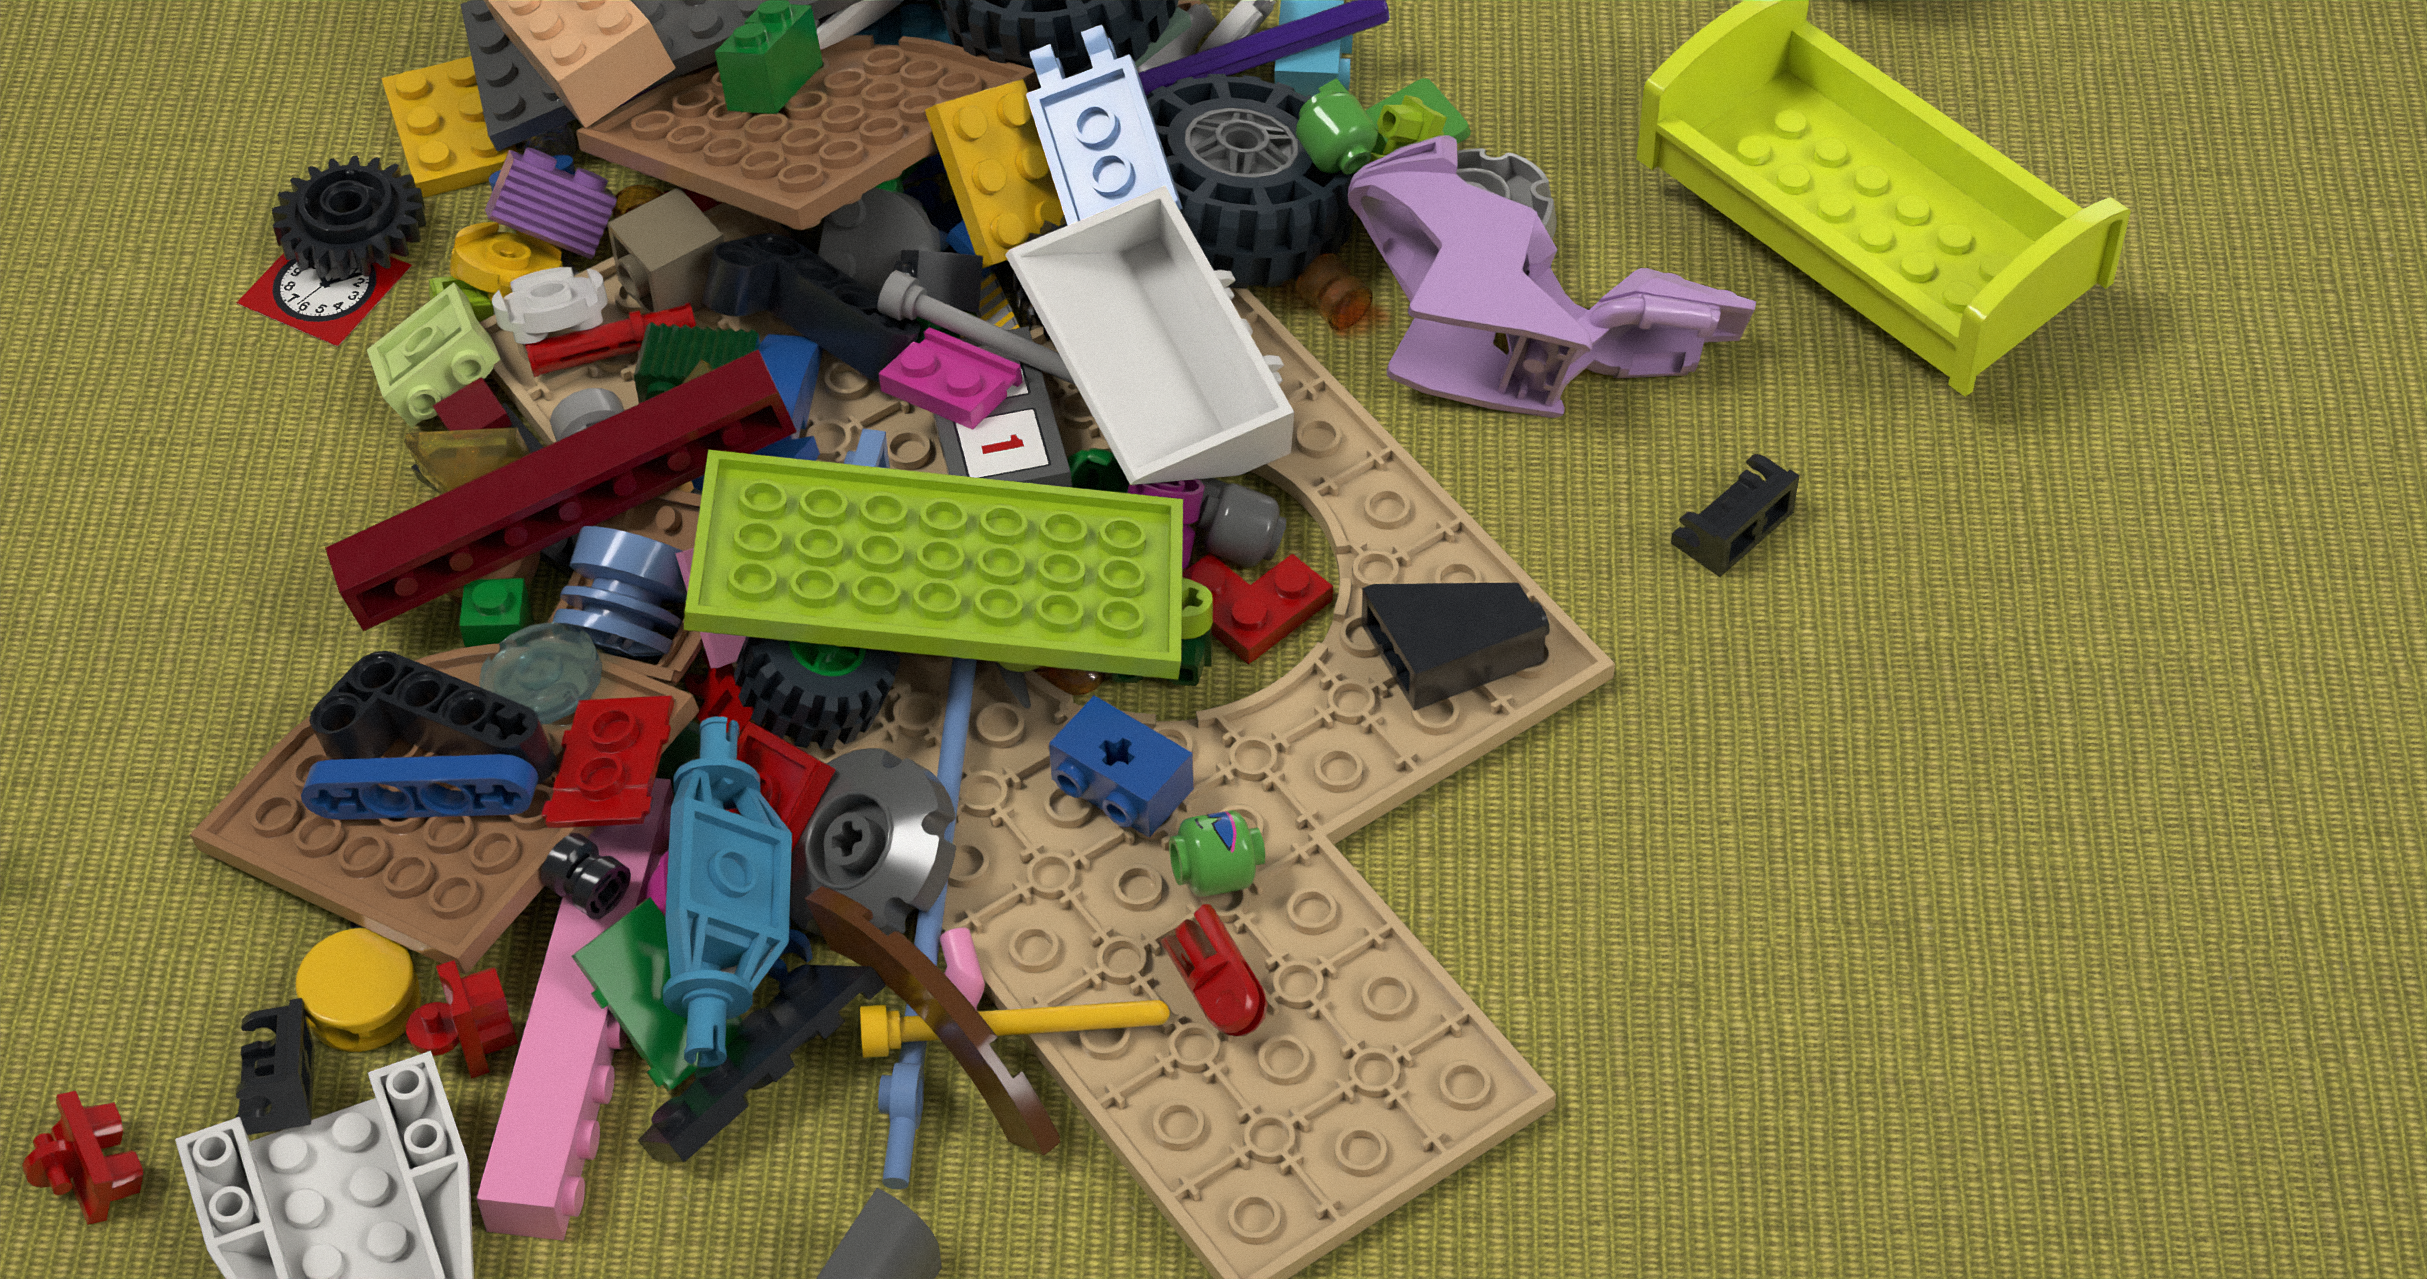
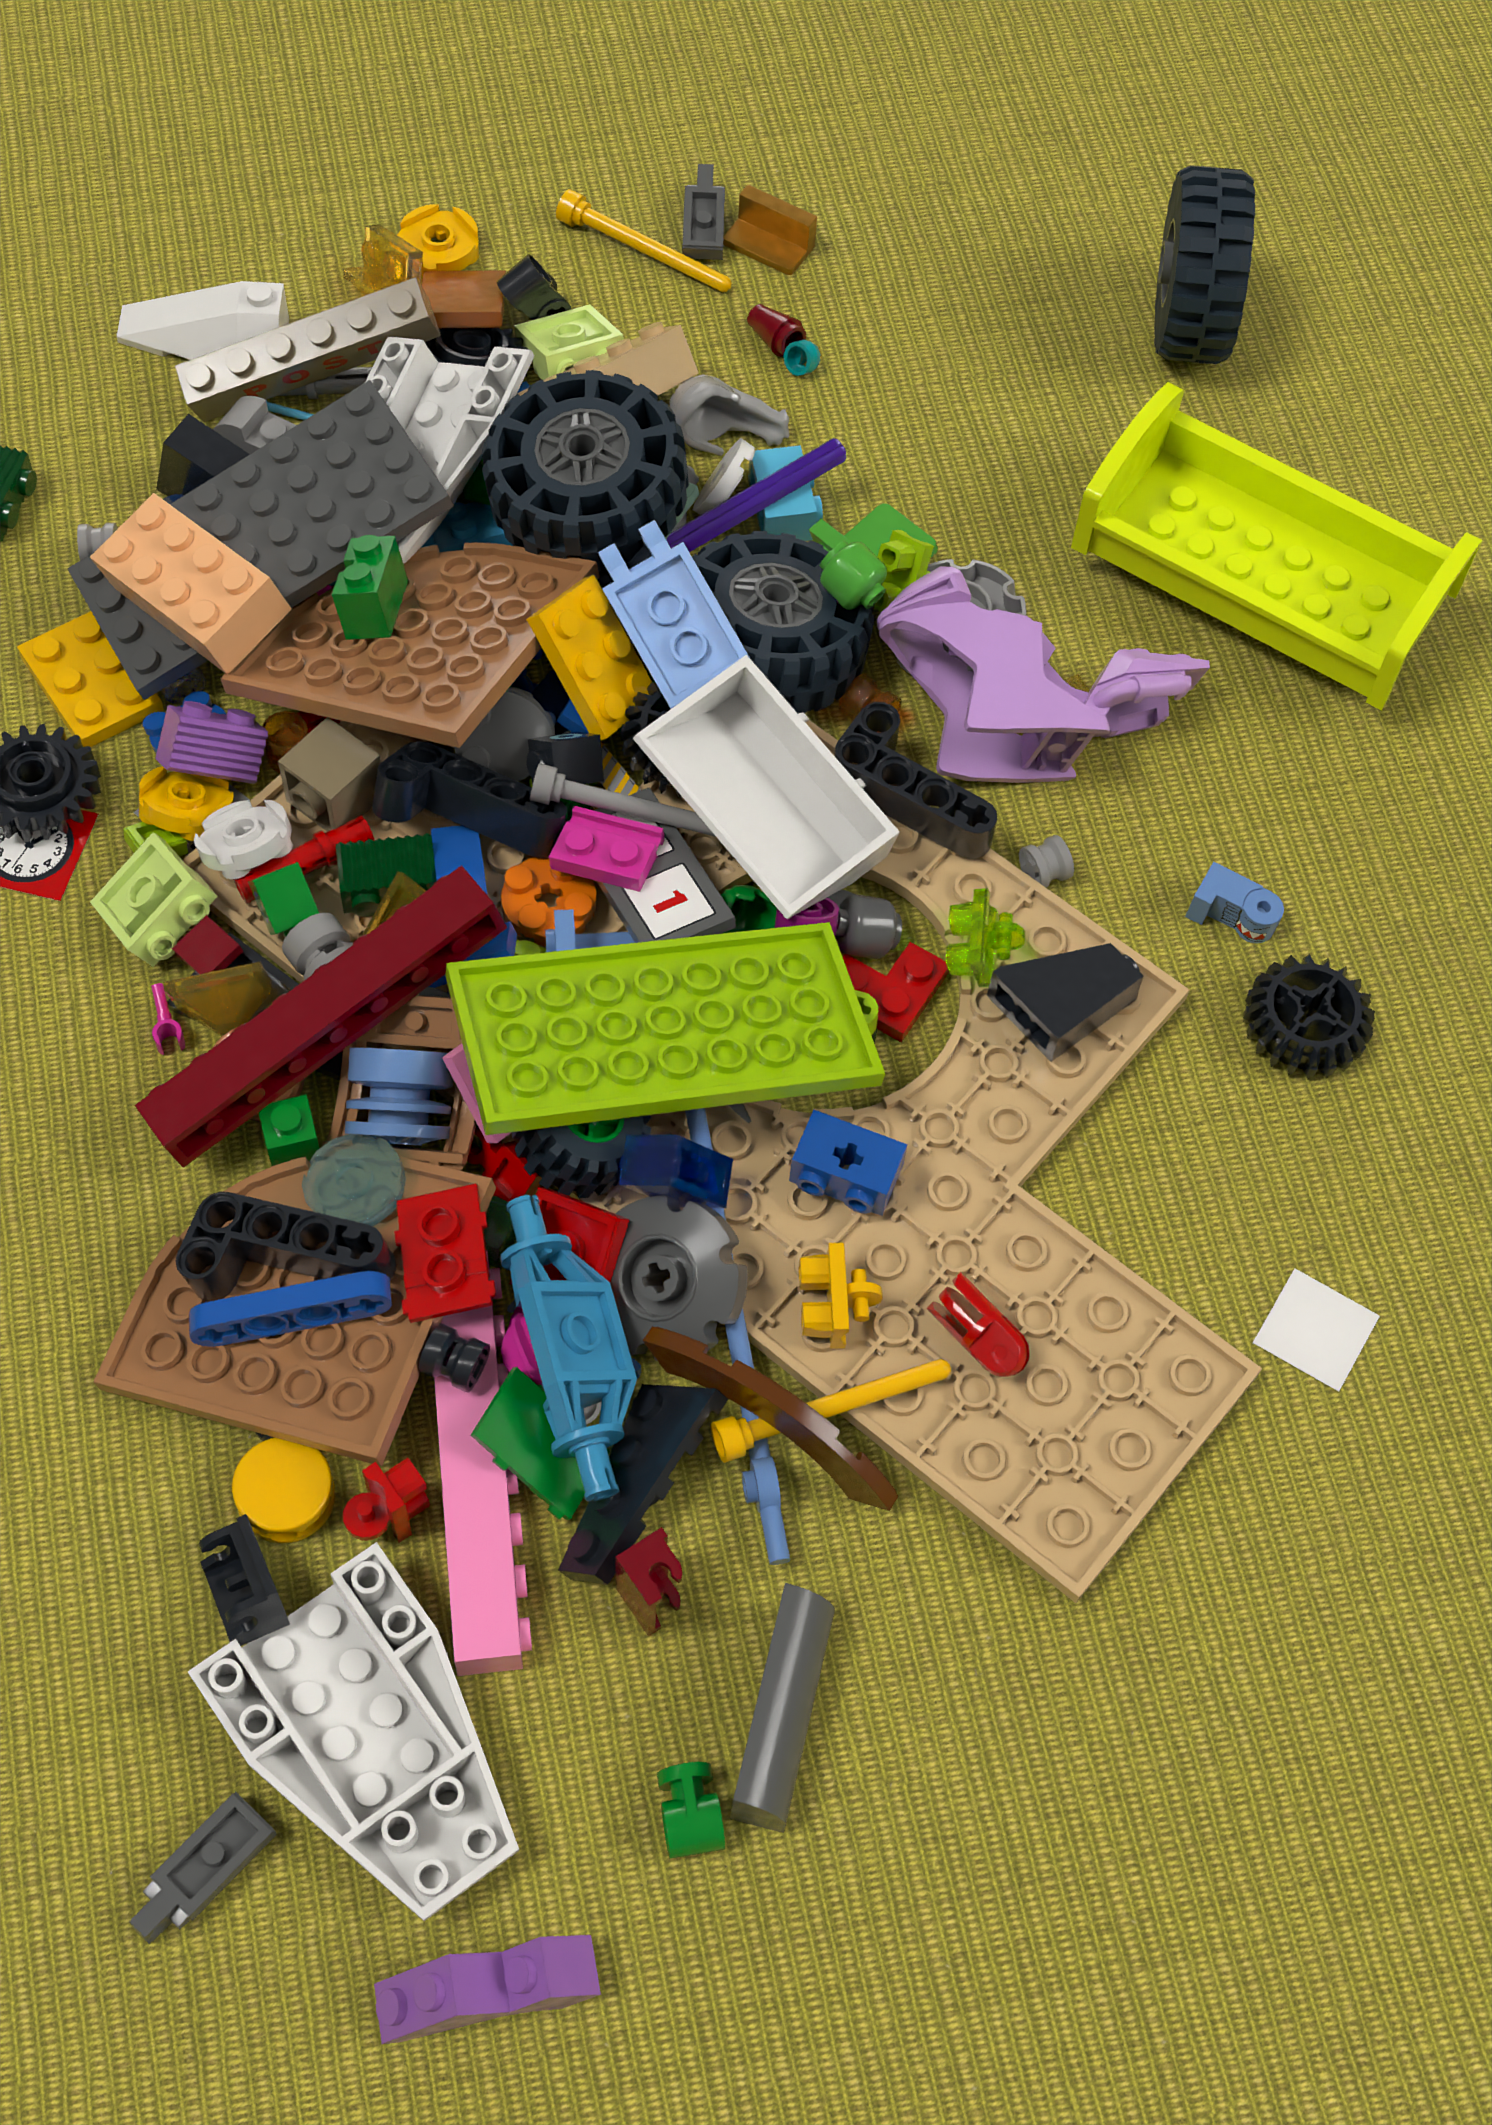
camera: 20 degrees left, 10 degrees up
(74, 1157) = (98, 1702): red hips -> none
(403, 490) = (165, 1026): none -> dark pink hand
(567, 365) = (283, 898): none -> green brick
(729, 1157) = (644, 1578): none -> dark red hinge
(864, 406) = (531, 880): none -> orange plate
(906, 719) = (675, 1169): none -> clear blue brick
(963, 964) = (774, 1360): bright pink arm -> none
(1063, 903) = (831, 1317): none -> yellow hips
(1216, 853) = (948, 1225): bright green head -> none
(1337, 384) = (962, 820): none -> black beam
(1375, 554) = (986, 938): none -> clear neon green hips
(1489, 495) = (1047, 861): none -> light grey wheel
(1650, 1074) = (1316, 1329): none -> white sticker
(1708, 581) = (1237, 903): none -> medium blue leg
(1739, 516) = (1239, 834): black hinge -> none
(1755, 739) = (1325, 1039): none -> black gear

